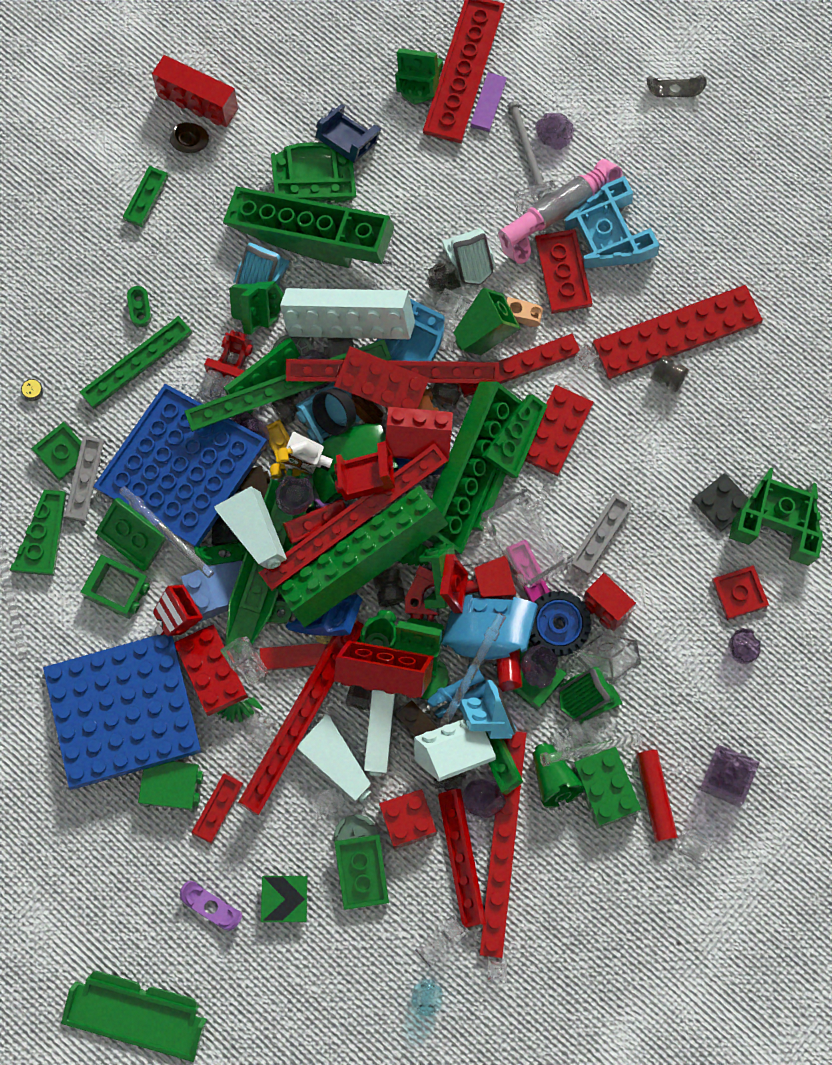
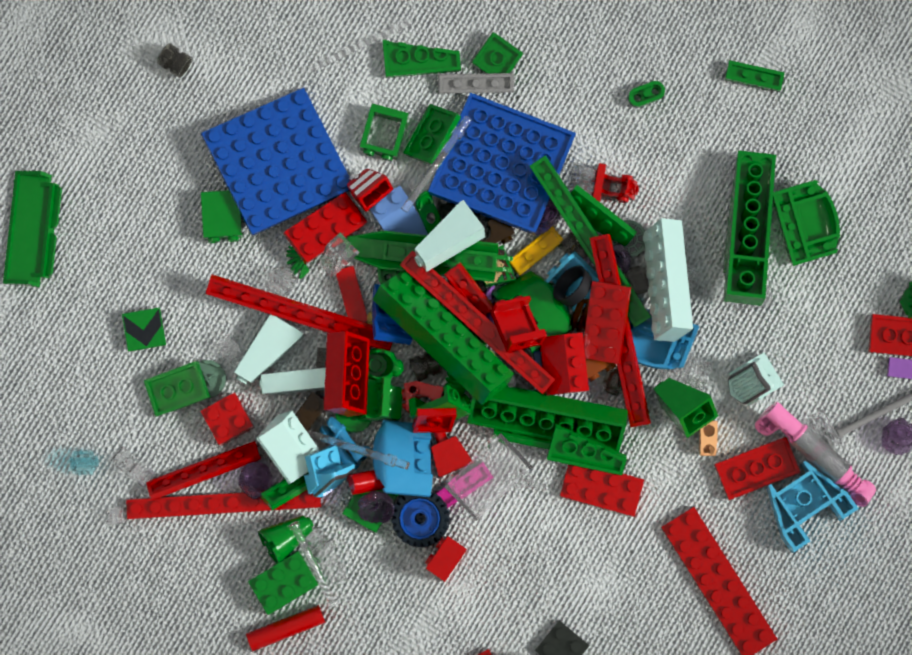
camera: 75 degrees right, 10 degrees up
(32, 389) = (550, 19): light yellow tile -> none
(136, 362) = (592, 103): green plate -> none
(189, 137) = (820, 102): dark brown hat -> none
(195, 91) = (865, 97): red brick -> none
(196, 898) = (133, 257): medium lavender piece -> none
(217, 808) = (211, 259): red tile -> none
(255, 304) = (665, 197): green piece -> none
(260, 266) = (699, 194): medium azure piece -> none
(294, 495) = (485, 266): clear purple hair -> none
(299, 454) = (527, 266): white torso -> none
(346, 135) = (852, 244): dark blue panel -> none
(443, 276) = (726, 359): clear smoke brick -> none
(479, 553) = (473, 438): clear tile -> none
(530, 361) = (665, 455): red plate -> none
(586, 358) = (675, 503): clear wheel -> none
(587, 696) = (362, 555): green piece -> none
(601, 533) = (511, 543): light grey plate -> none
(612, 656) = (397, 567): clear slope -> none
(669, 373) = (673, 581): clear smoke wheel -> none

